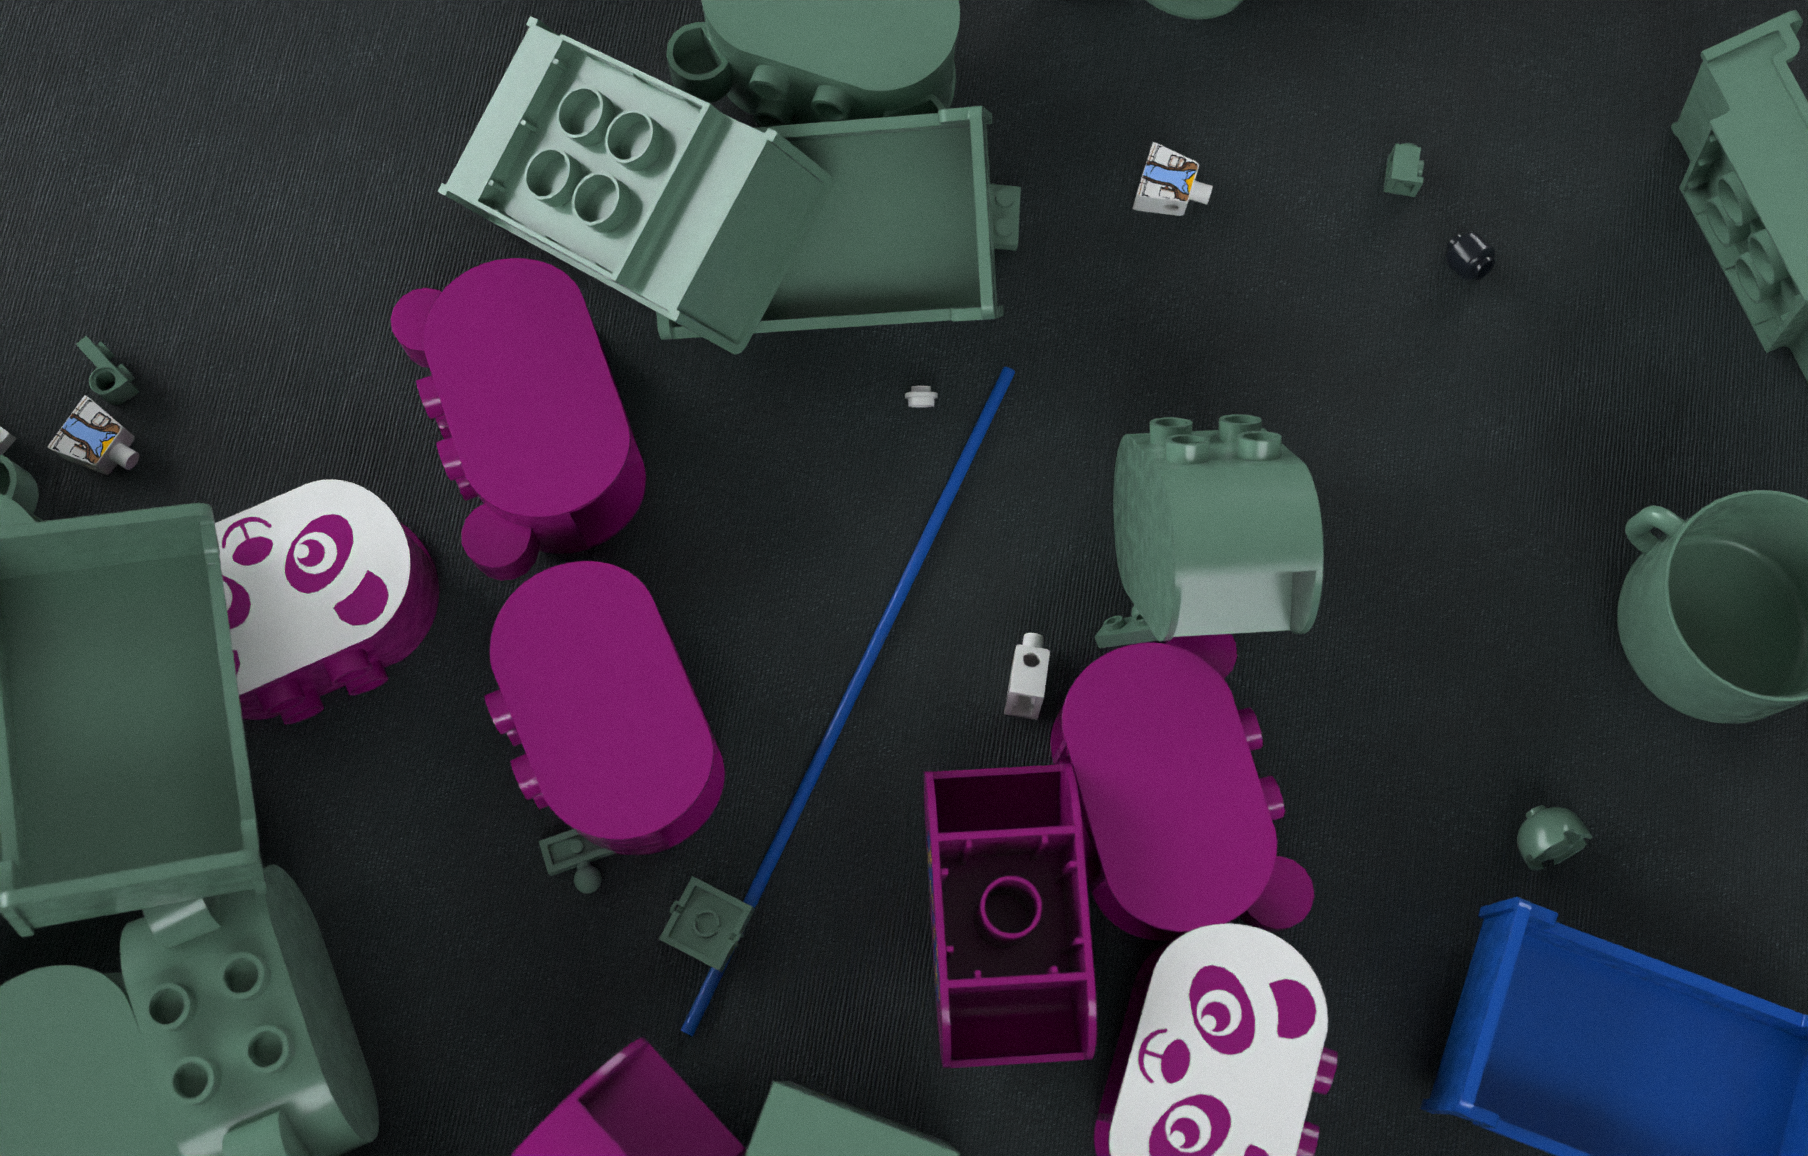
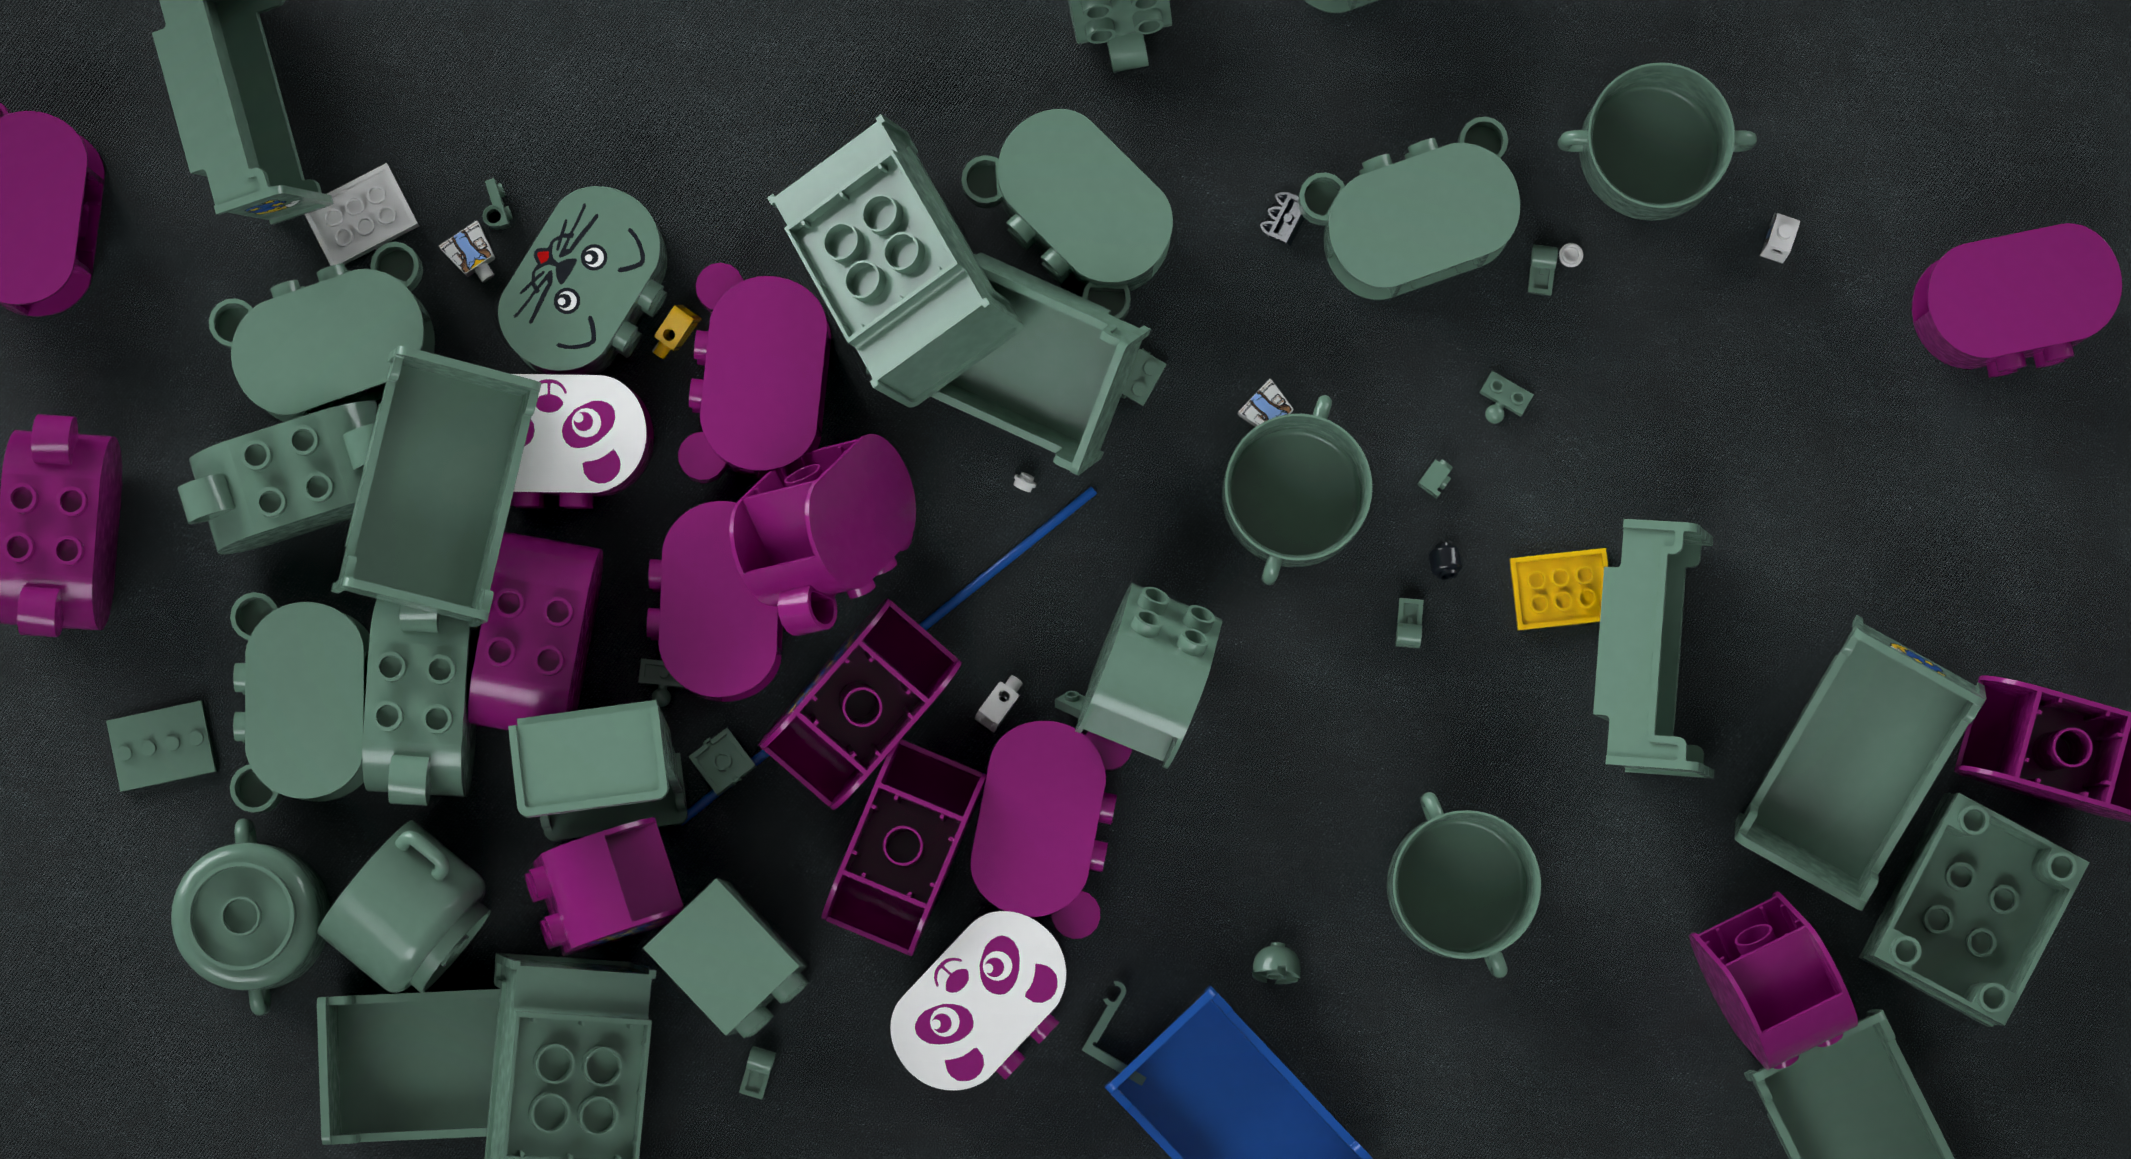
camera: 25 degrees right, 10 degrees up
(246, 386) = (585, 284): none -> sand green brick
(372, 875) = (536, 632): none -> magenta brick
(397, 413) = (682, 322): none -> yellow torso
(520, 1008) = (597, 770): none -> sand green piece
(694, 542) = (823, 529): none -> magenta brick
(856, 753) = (860, 704): none -> magenta brick
(1268, 229) = (1296, 490): none -> sand green piece
(1372, 1035) = (1098, 1030): none -> sand green hinge
(1430, 48) = (1506, 395): none -> sand green plate
(1469, 348) = (1409, 623): none -> sand green plate
(1620, 226) = (1558, 588): none -> yellow plate

